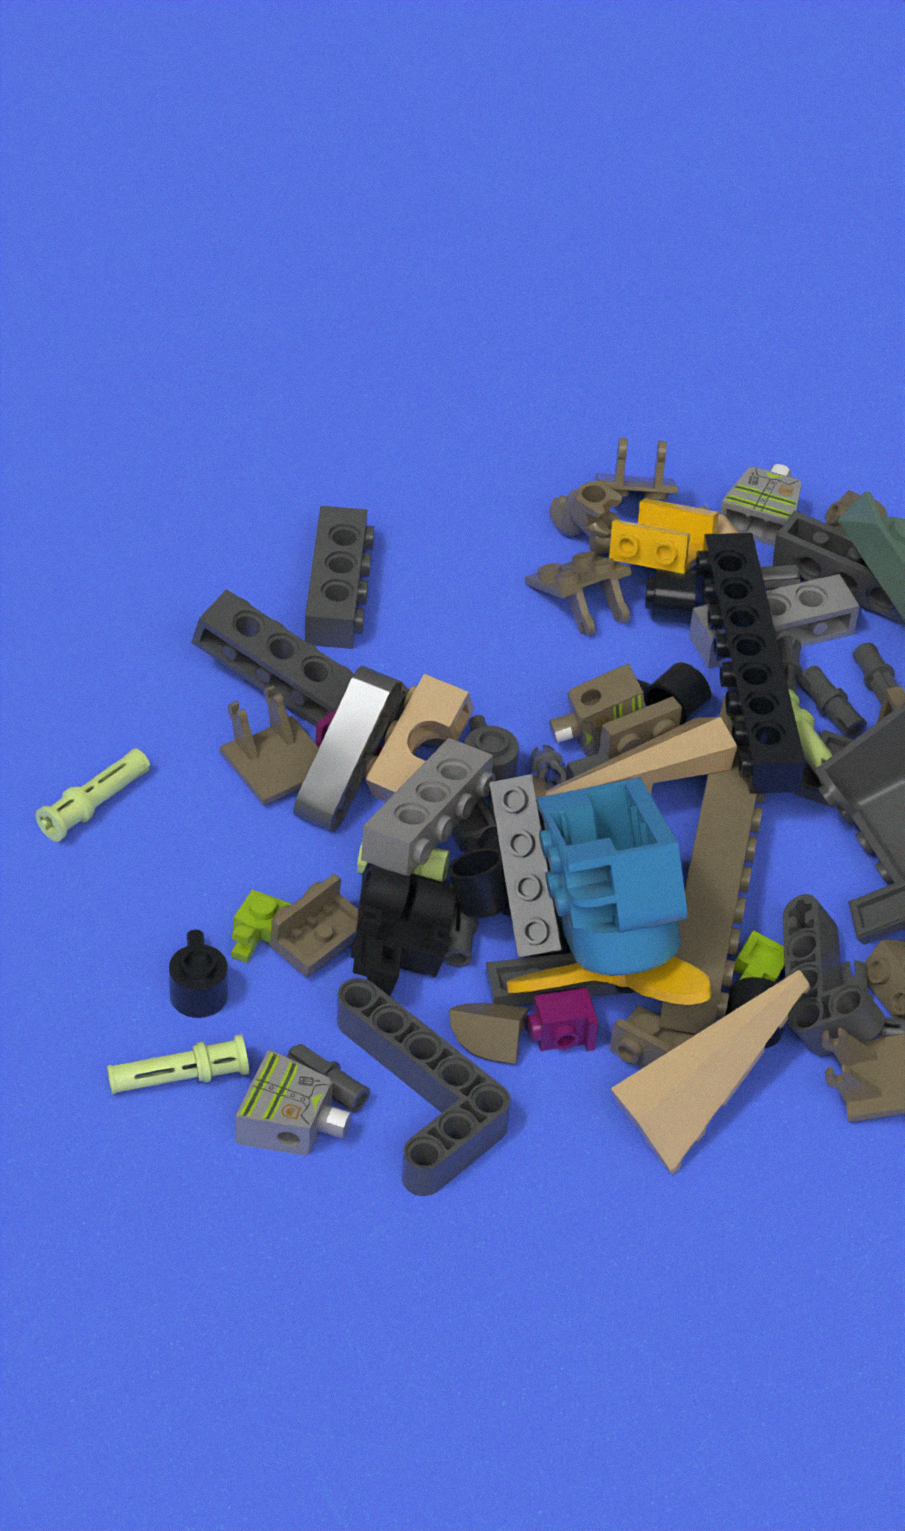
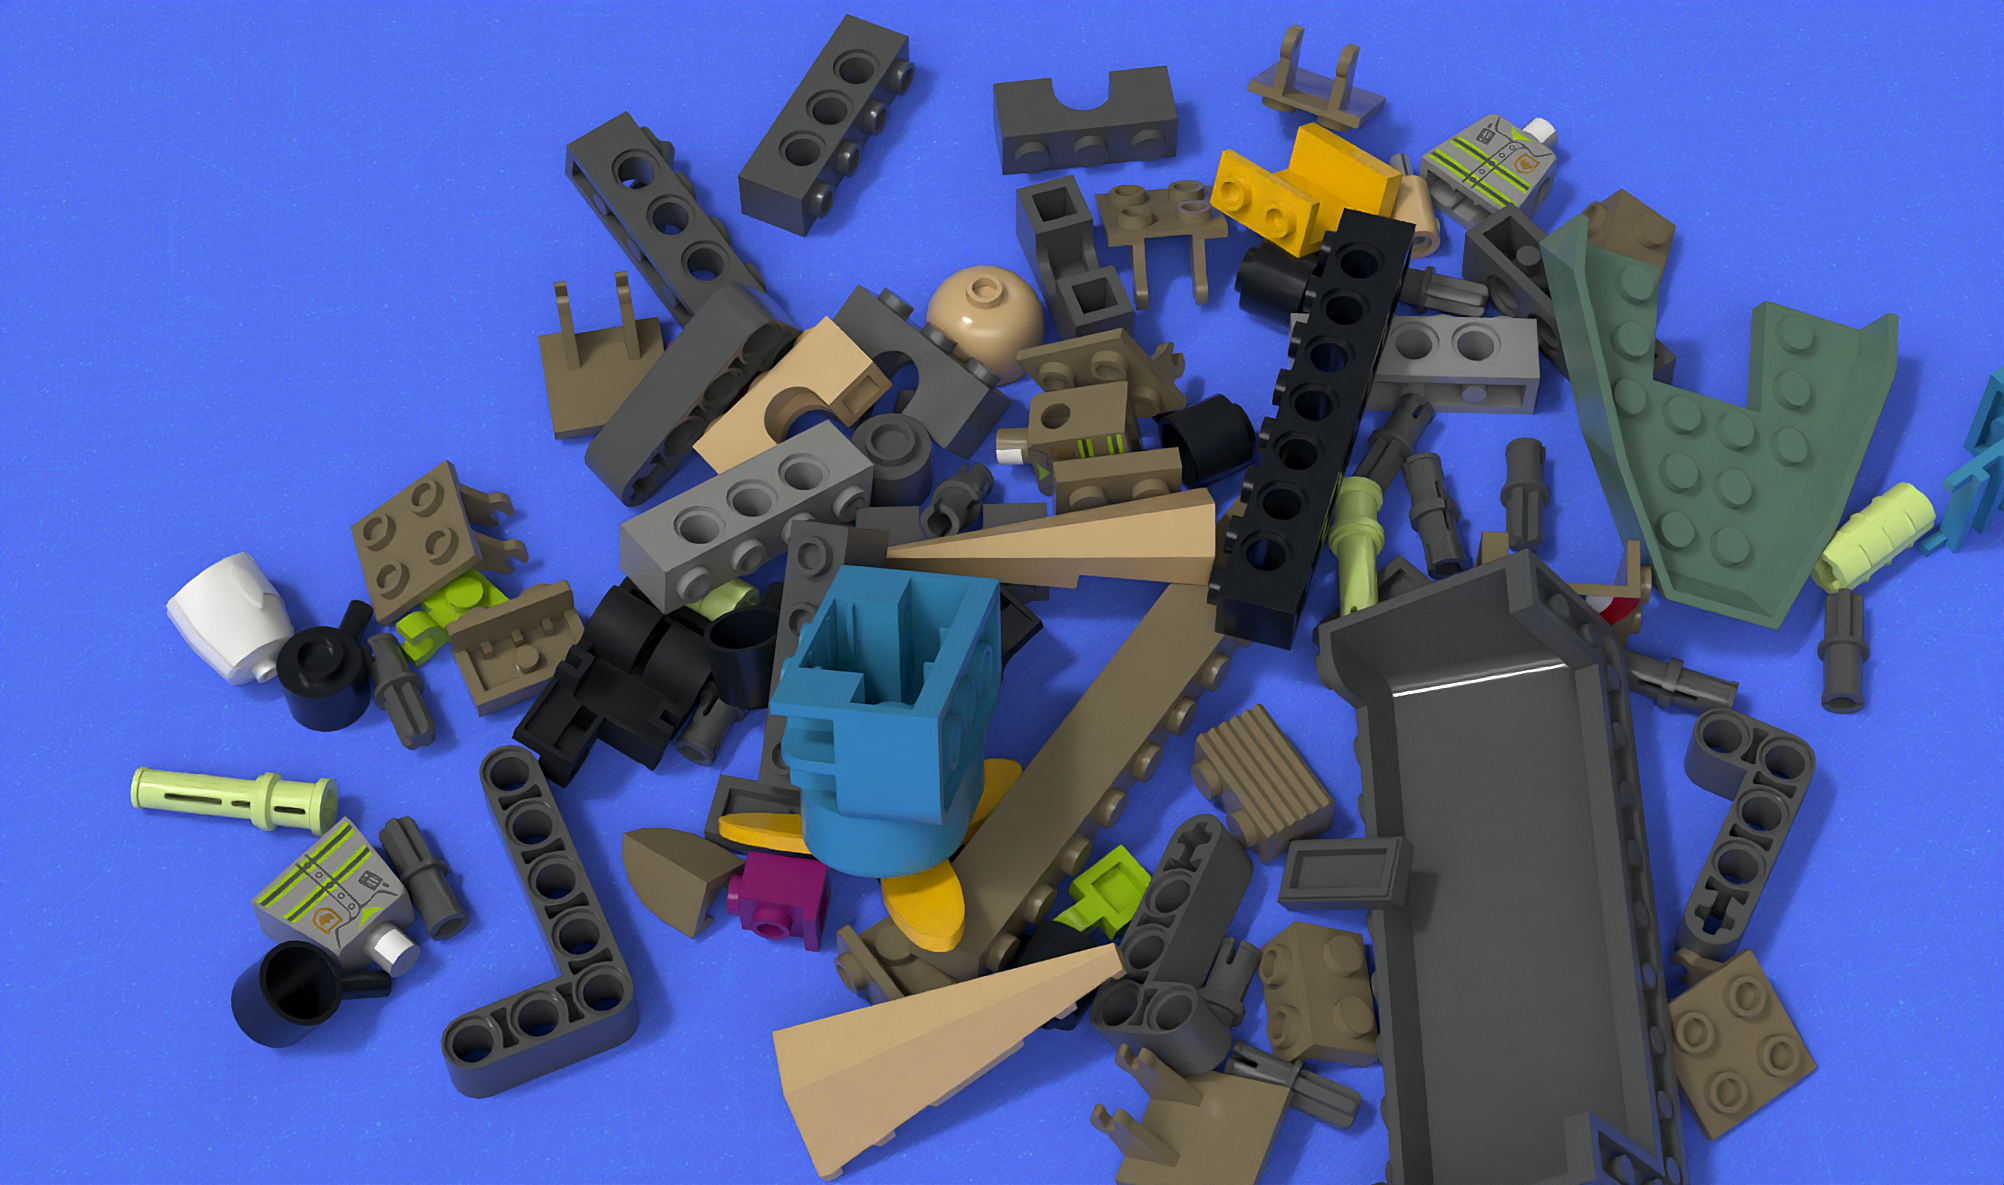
camera: 25 degrees right, 10 degrees up
(80, 802) = (311, 366): yellowish green pin -> none
(124, 962) = (233, 619): none -> white helmet
(219, 883) = (426, 541): none -> dark tan plate
(253, 977) = (398, 691): none -> dark grey axle
(290, 1162) = (296, 992): none -> black piece
(473, 548) = (1044, 135): none -> dark grey arch
(501, 667) = (989, 317): none -> tan cylinder
(512, 706) = (953, 398): none -> dark grey arch
(564, 640) = (1061, 252): none -> dark grey arch
(587, 512) = (1215, 120): dark tan animal -> none
(604, 656) = (1107, 359): none -> dark tan plate
(809, 867) = (1260, 784): none -> dark tan brick

